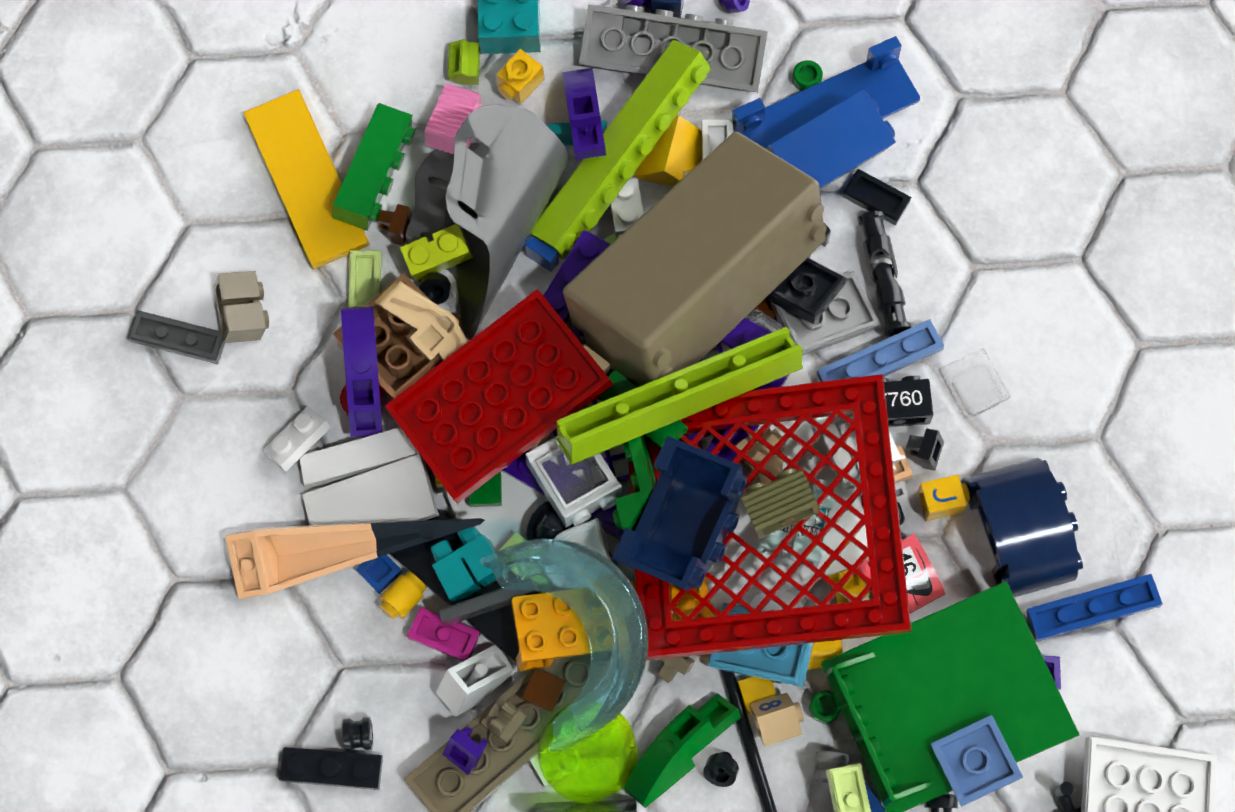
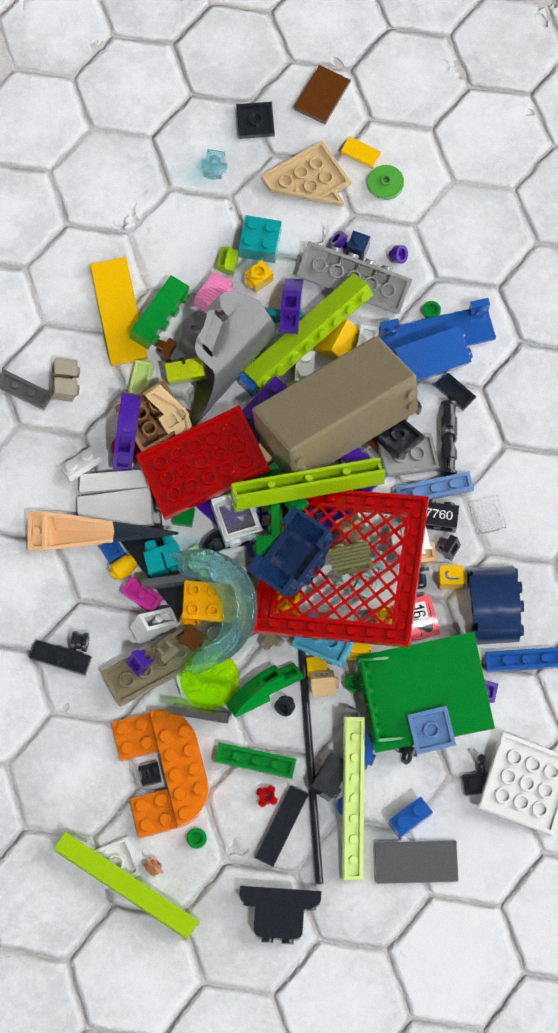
camera: 10 degrees right, 0 degrees up
(435, 287) = (181, 392): black tile -> none

